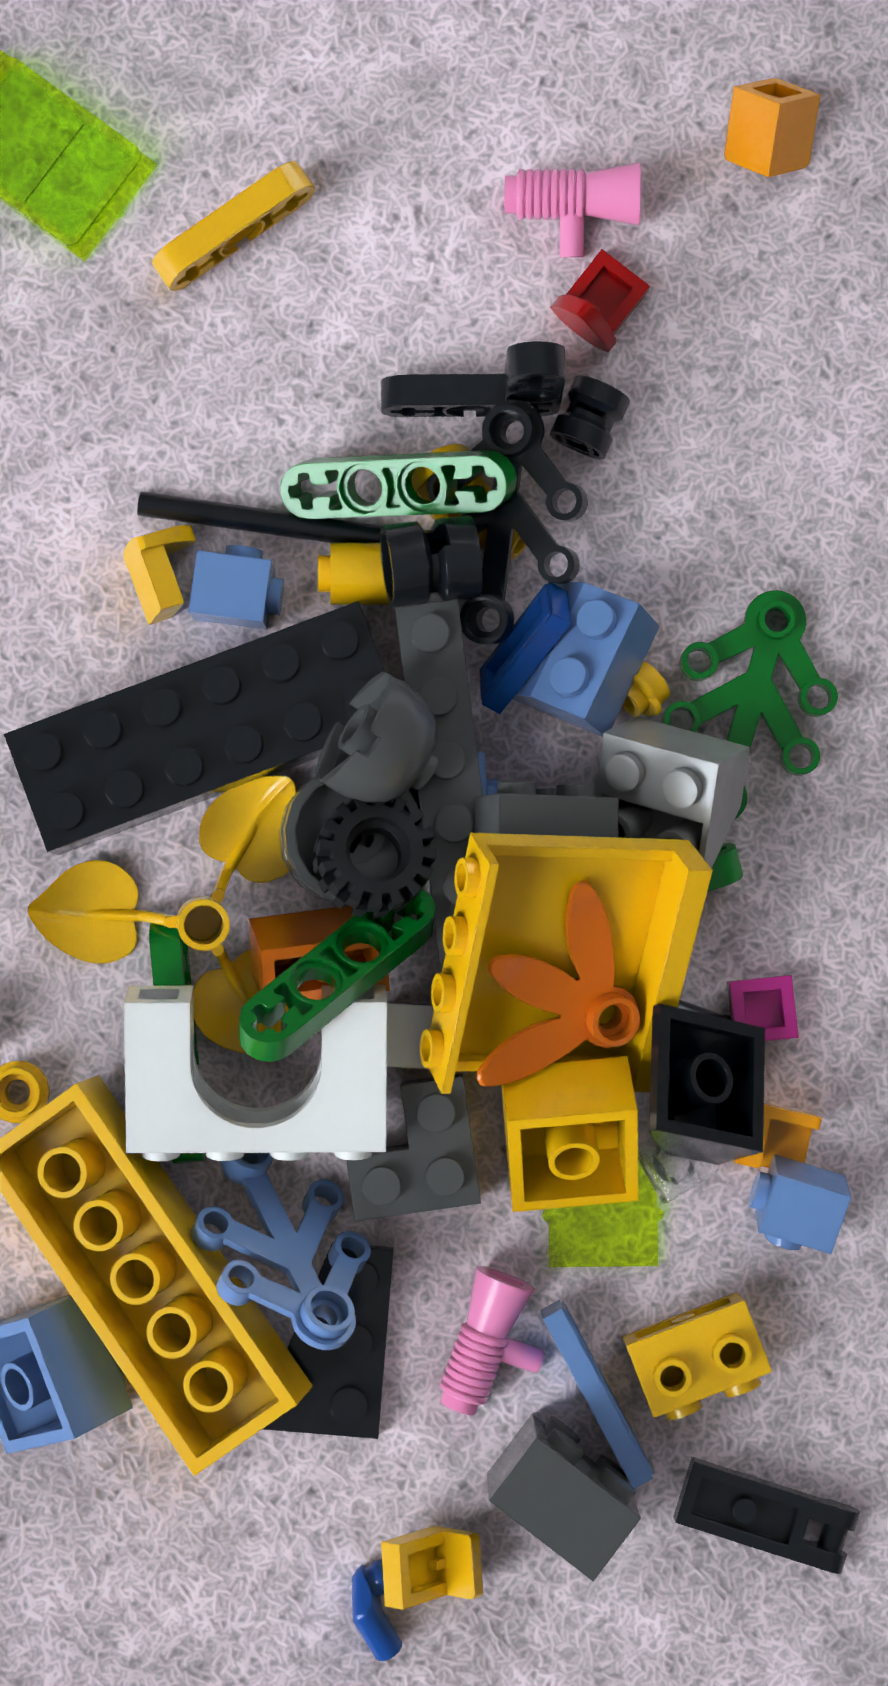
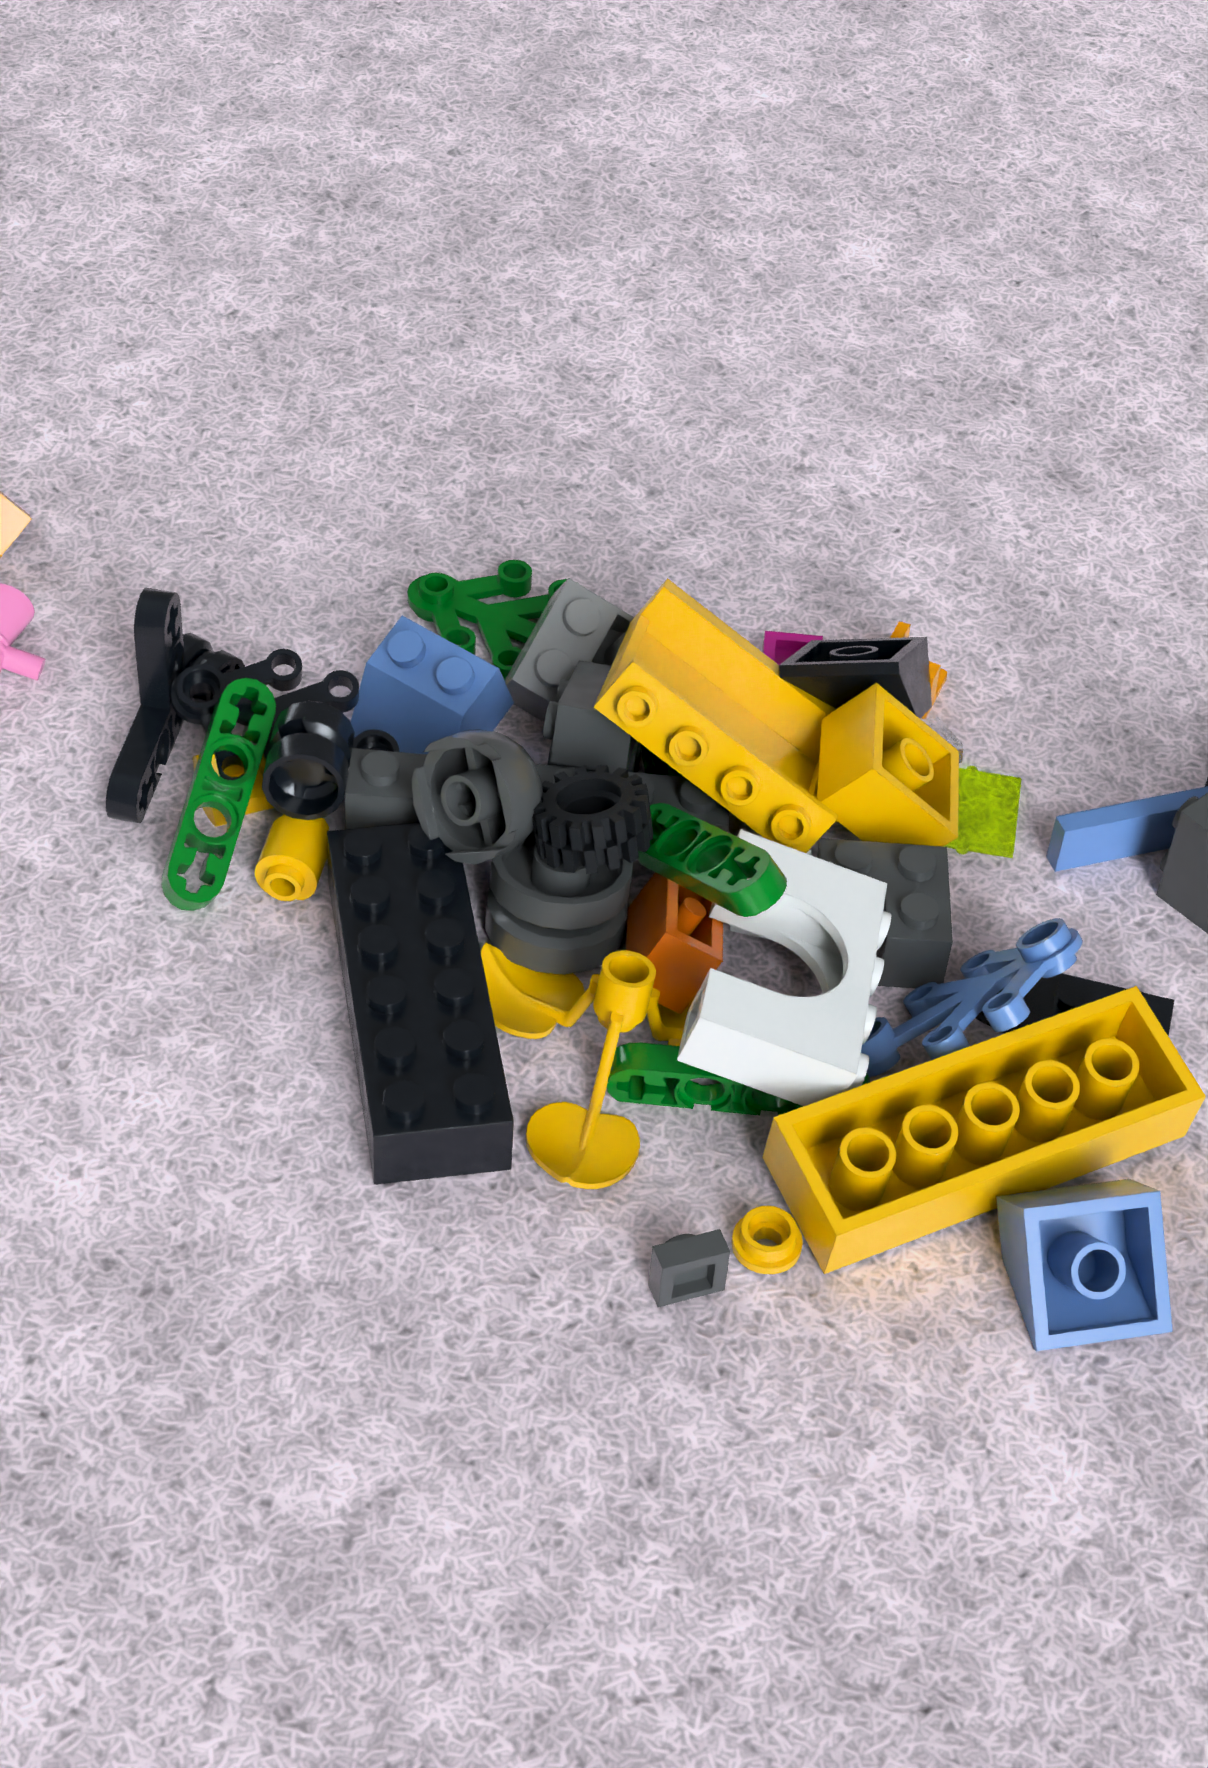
camera: 85 degrees left, 40 degrees down
(152, 571) = (239, 1014): yellow tile -> none
(235, 588) = (274, 953): medium blue brick -> none
(255, 519) = (203, 941): black bar -> none
(484, 1343) = (1083, 902): bright pink piece -> none
(525, 647) = (401, 710): blue tile -> none
(575, 1001) = (776, 726): orange plant -> none
(601, 301) = (92, 656): red tile -> none
(697, 1357) = (1108, 749): yellow brick -> none
(799, 1204) = (978, 660): medium blue brick -> none

